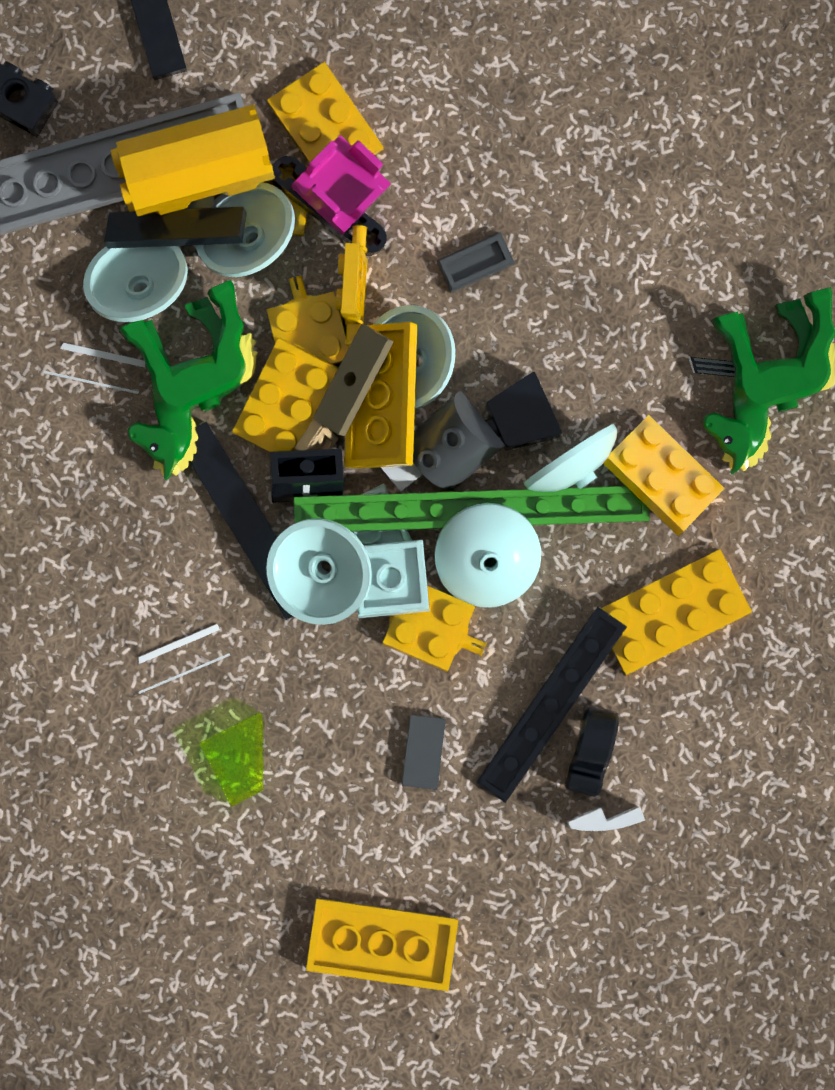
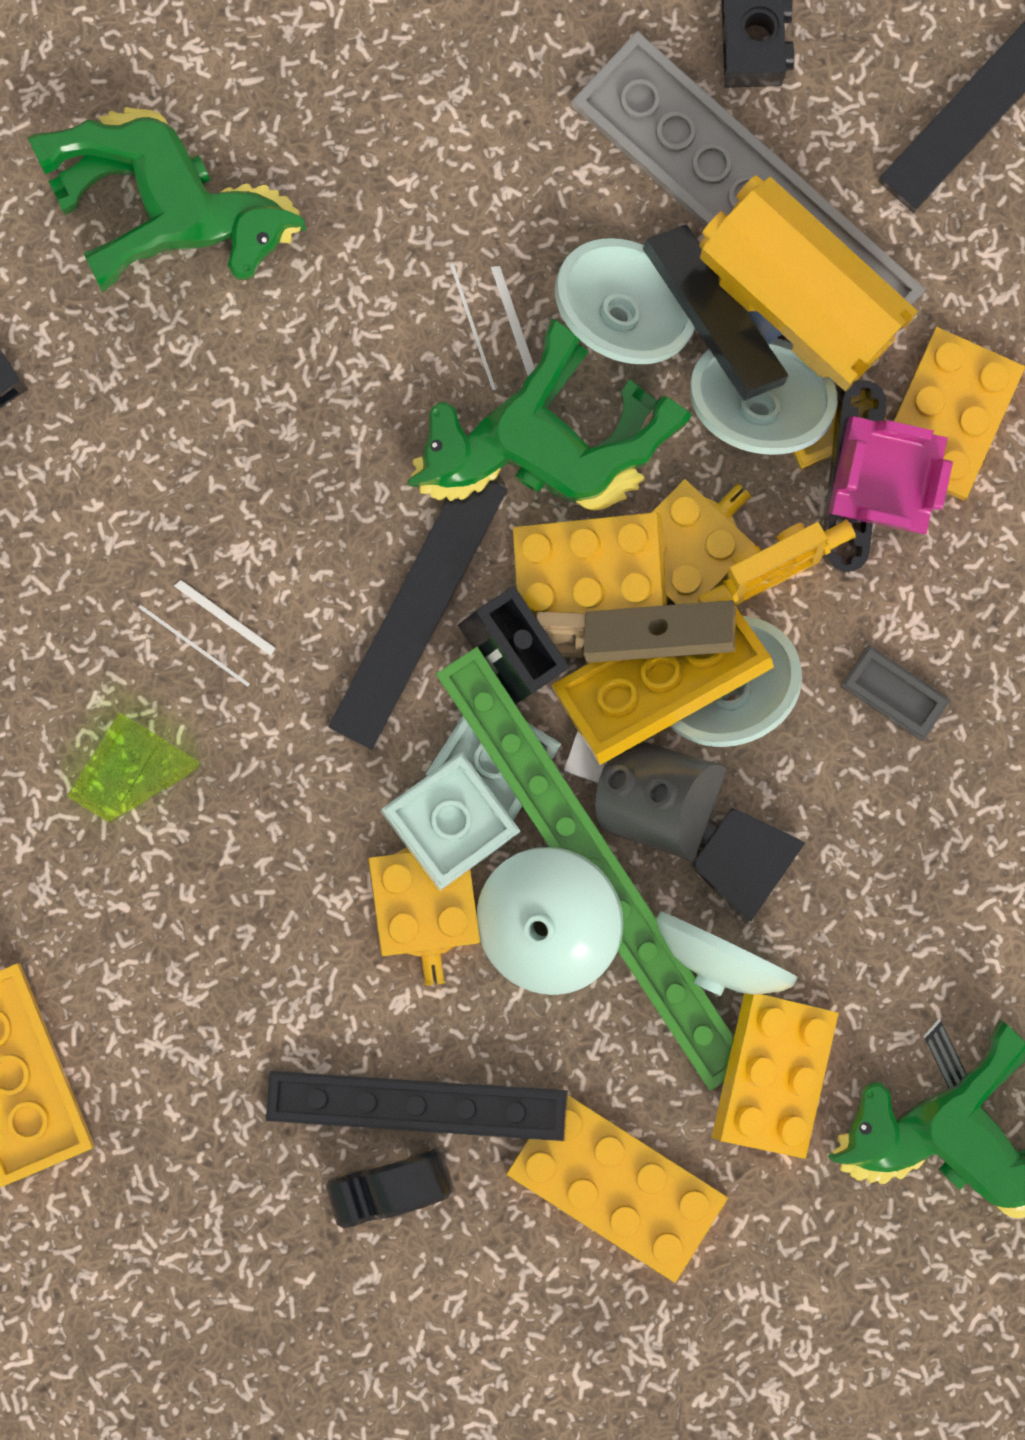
camera: 65 degrees right, 0 degrees up
(303, 584) = (380, 727): light aqua dish -> none
(423, 752) = (268, 986): dark grey tile -> none
(595, 820) = (306, 1243): white slope -> none

